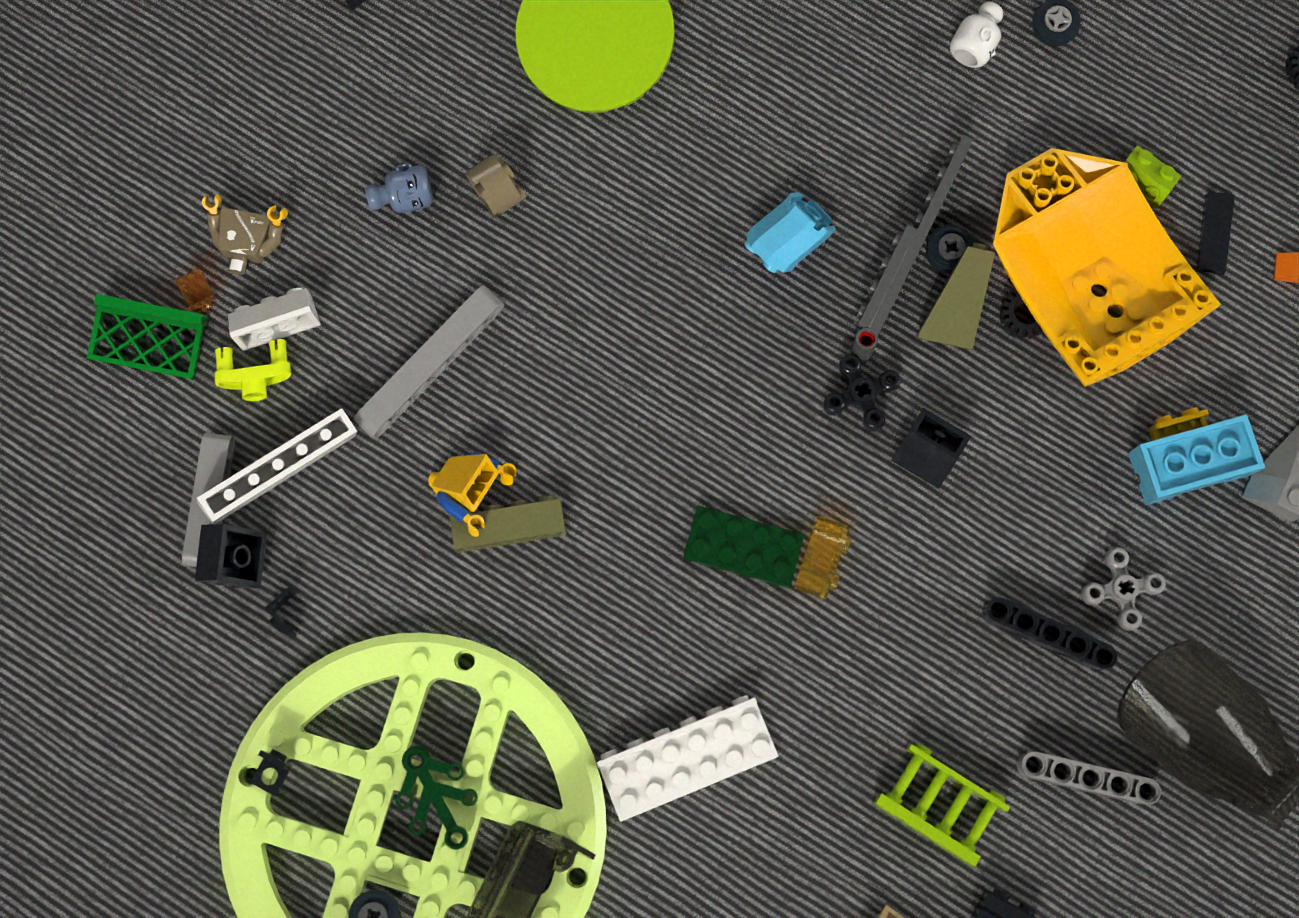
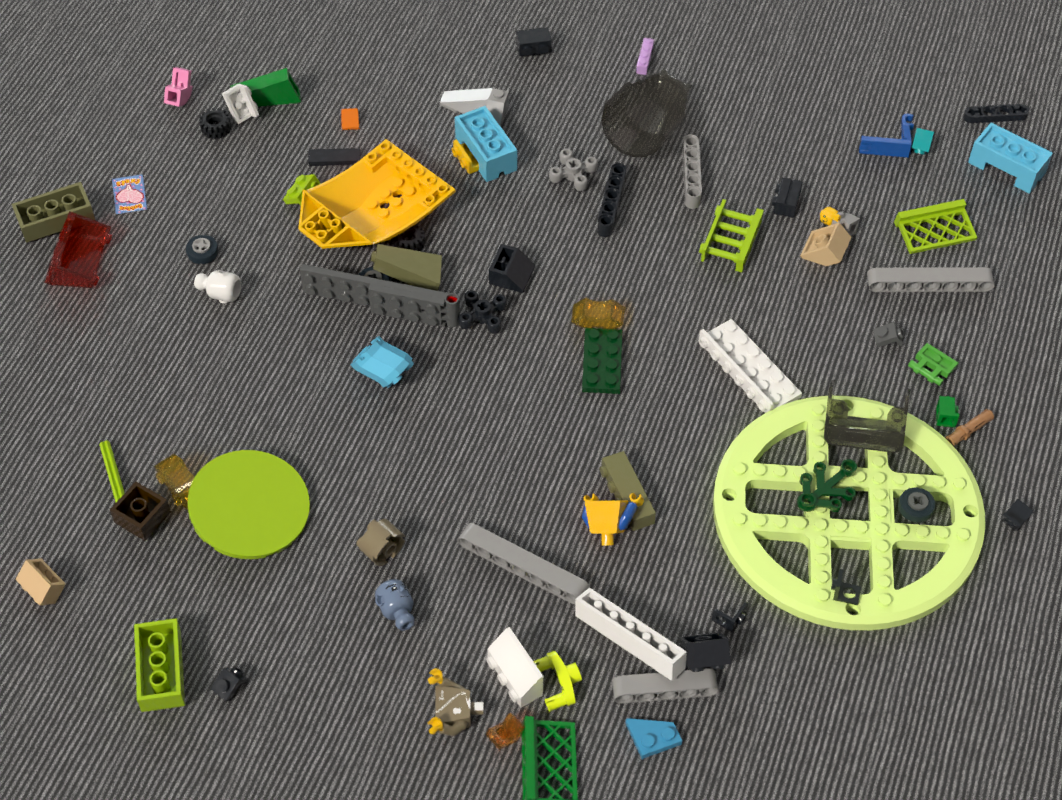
camera: 105 degrees left, 25 degrees down
(149, 470) = (653, 736): none -> dark azure wing

